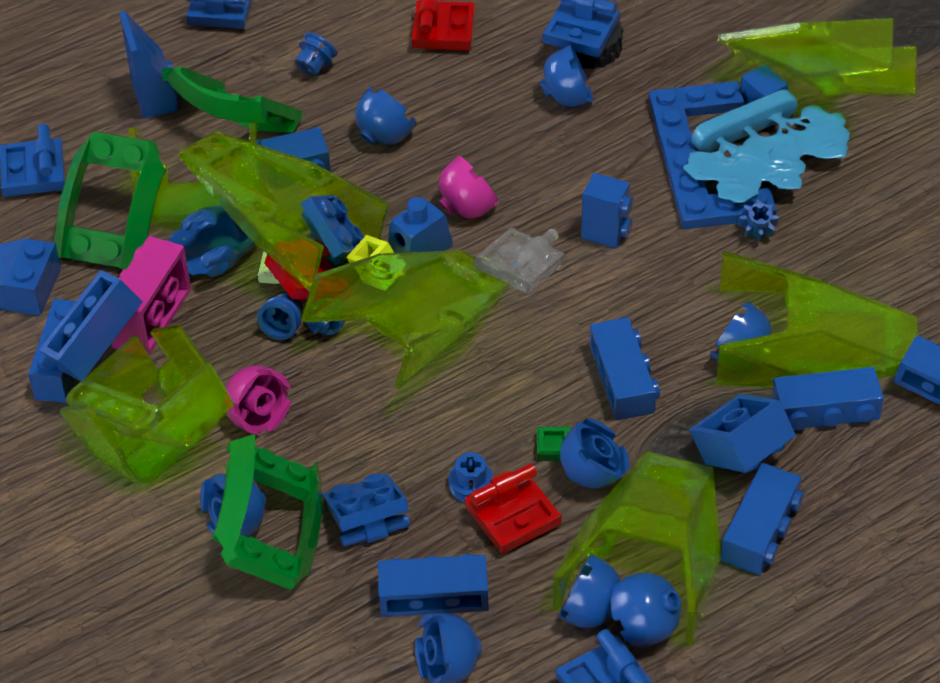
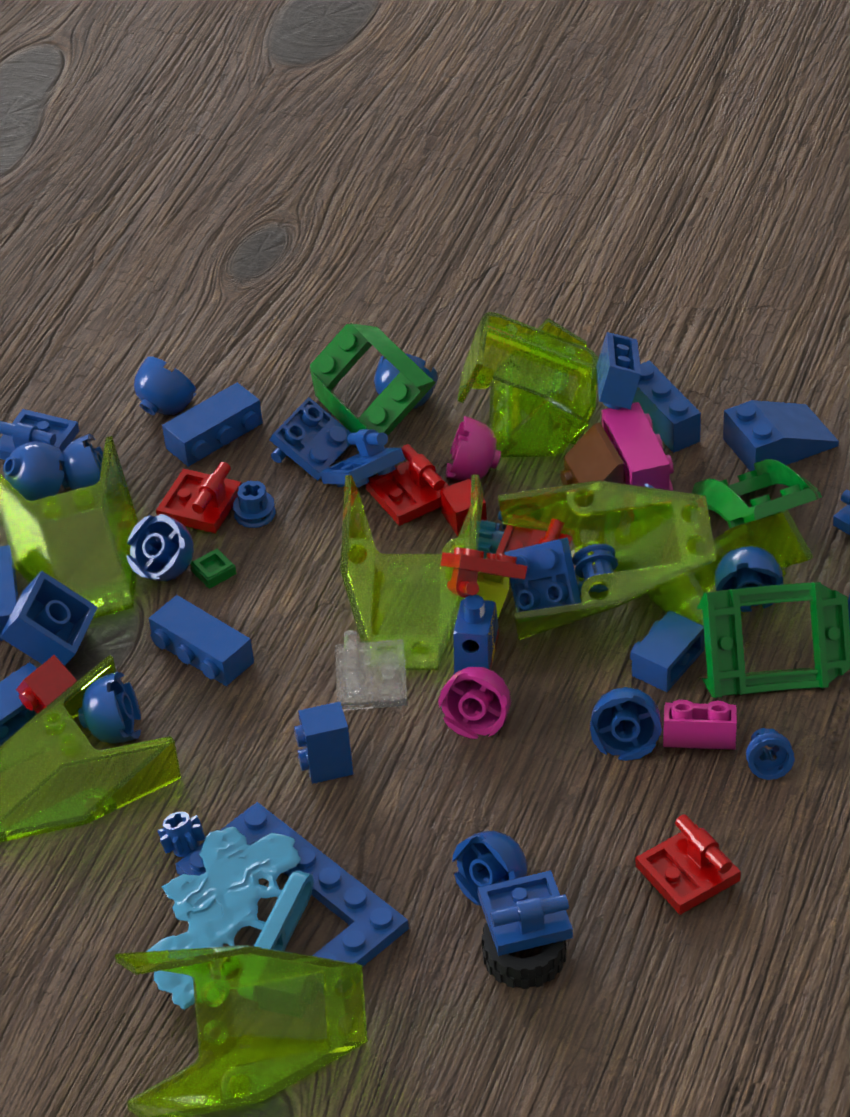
camera: 145 degrees right, 5 degrees down
(176, 139) = (748, 568): none -> blue cylinder
(190, 301) = (593, 459): none -> reddish brown slope
(288, 196) = (604, 562): none -> blue piece
(310, 360) = (456, 504): none -> red brick
(332, 406) = (409, 489): none -> red plate
(334, 92) = (700, 725): none -> dark pink brick
(354, 439) = (370, 460): none -> blue plate
(386, 220) = (470, 562): none -> red plate
(788, 359) = (45, 685): none -> red brick

